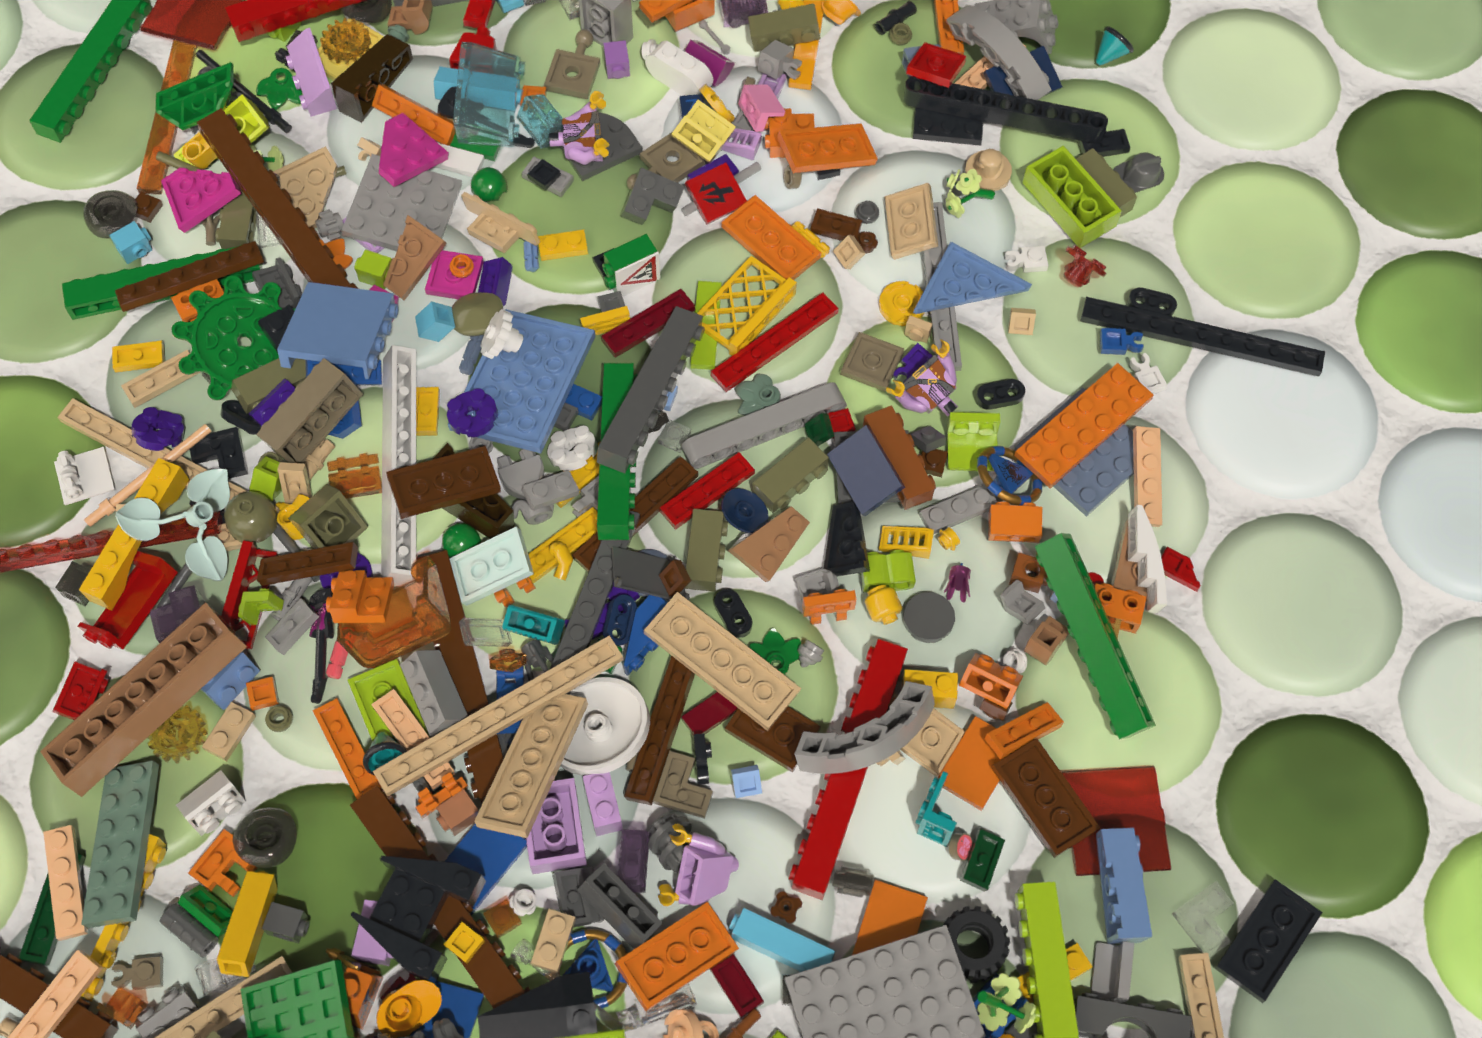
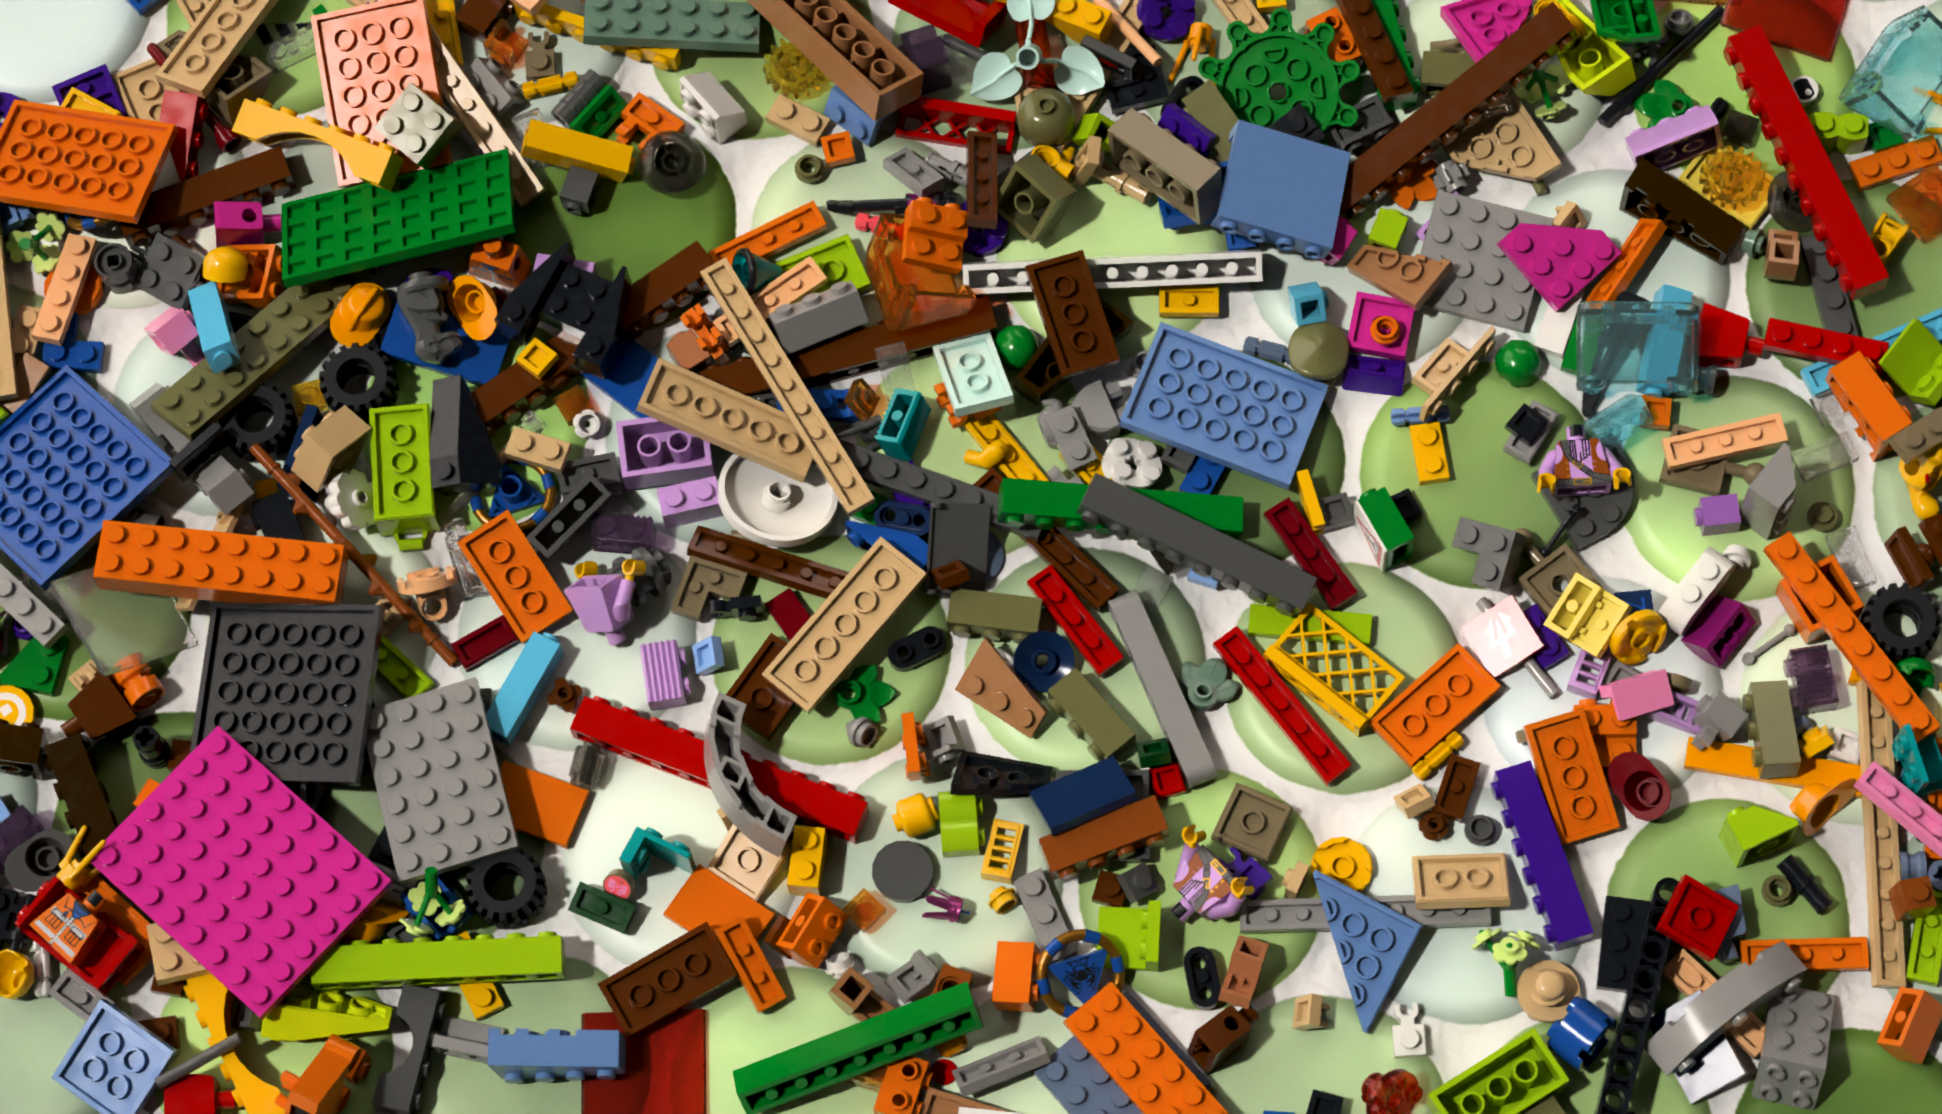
camera: 100 degrees right, 5 degrees up
(169, 961) = (549, 85): none -> yellow axle
(187, 406) = (1198, 41): none -> light orange plant
(201, 462) = (1111, 57): none -> dark grey tile
(258, 601) = (938, 129): lime bracket -> none
(337, 954) = (529, 252): pearl gold piece -> none
(356, 482) = (1095, 229): clear orange plate -> none
(470, 401) = (1175, 331): dark purple plate -> none
(500, 335) = (1273, 373): white plant -> none
(562, 49) = (1724, 441): none -> light nougat plate
(617, 144) = (1546, 550): none -> black hinge
(765, 818) = (664, 675): none -> lavender brick
(833, 105) = (1639, 786): none -> dark red piece
(867, 38) = (1755, 832): none -> lime slope
(886, 170) = (1542, 856): none -> dark purple brick
(966, 644) = (864, 910): none -> clear orange plate
(995, 364) = (1244, 972): none -> nougat brick
(1024, 142) = (1580, 1033): none -> blue brick
(1050, 376) = (1221, 1037): none -> reddish brown torso
(1088, 535) = (1001, 1066): none -> light grey plate

